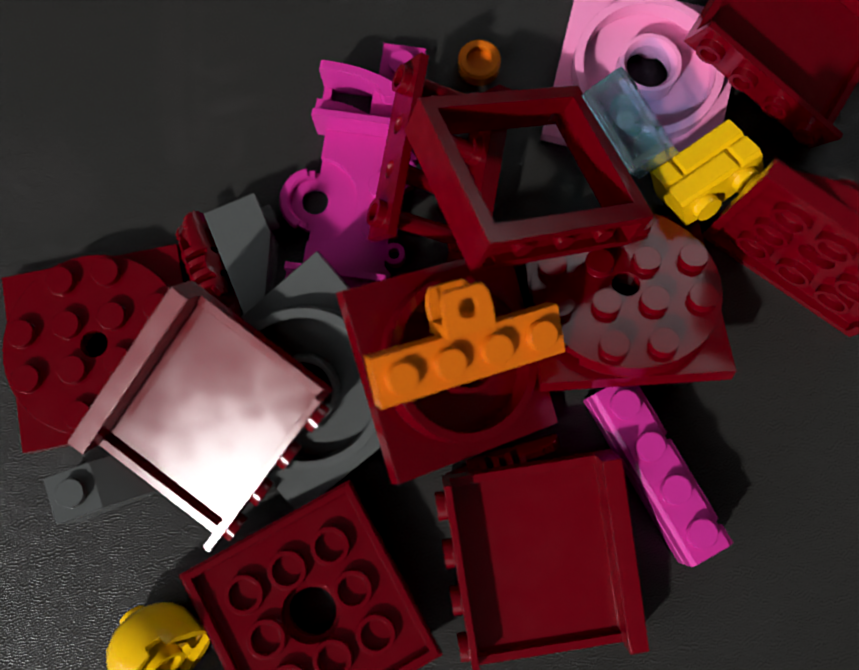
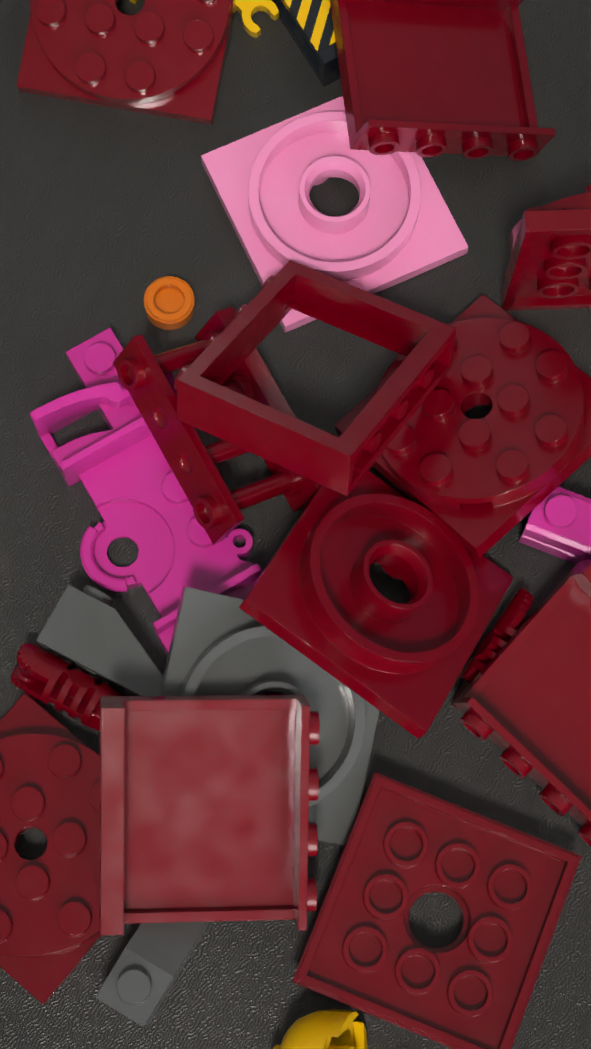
camera: 45 degrees left, 5 degrees down
(466, 344) = (390, 561): orange plate -> none
(629, 123) = (366, 261): clear light blue brick -> none
(707, 173) = (466, 253): yellow brick -> none

